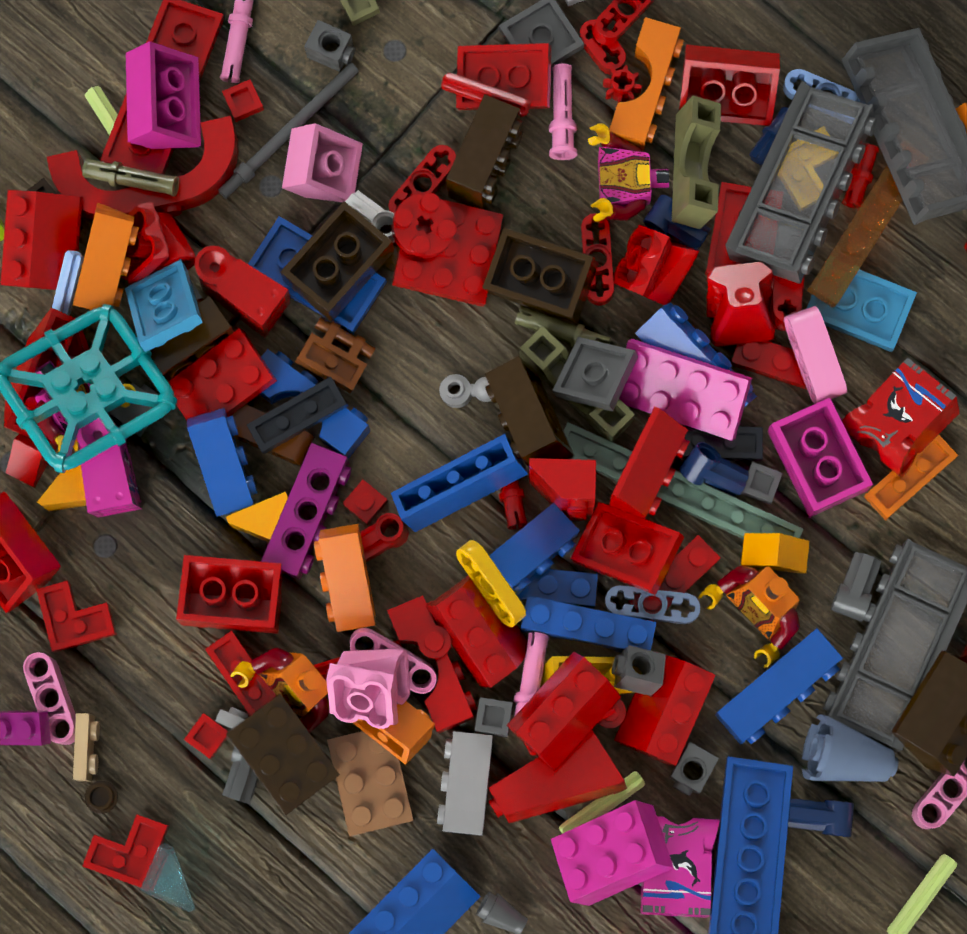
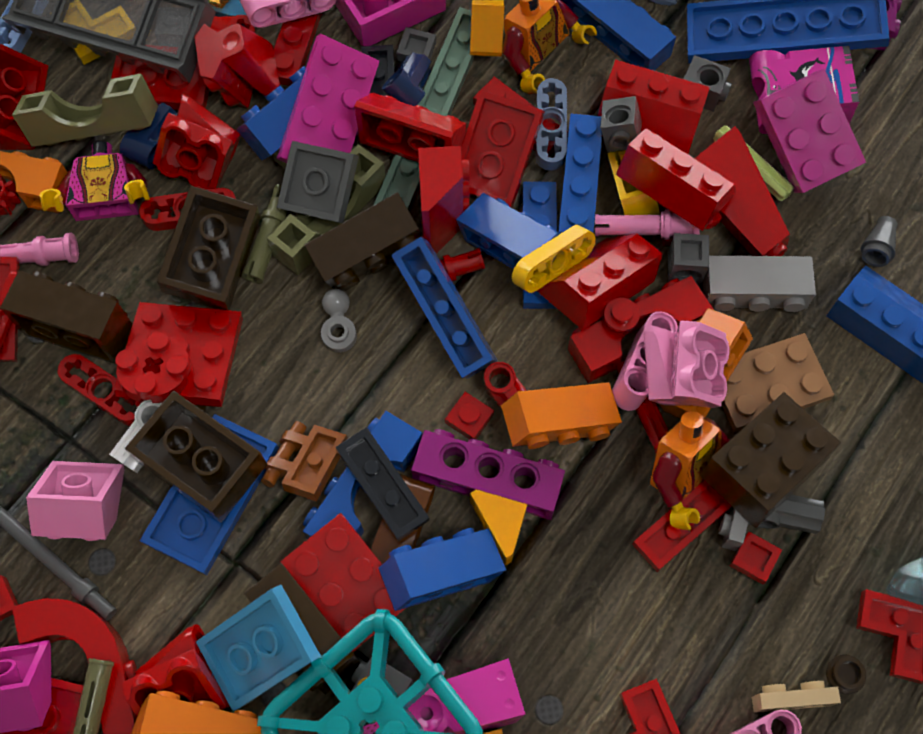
camera: 100 degrees left, 10 degrees down
(230, 594) = (596, 543): red slope -> none
(241, 289) = (230, 564): red piece -> none
(763, 146) = (57, 59): dark blue axle -> none

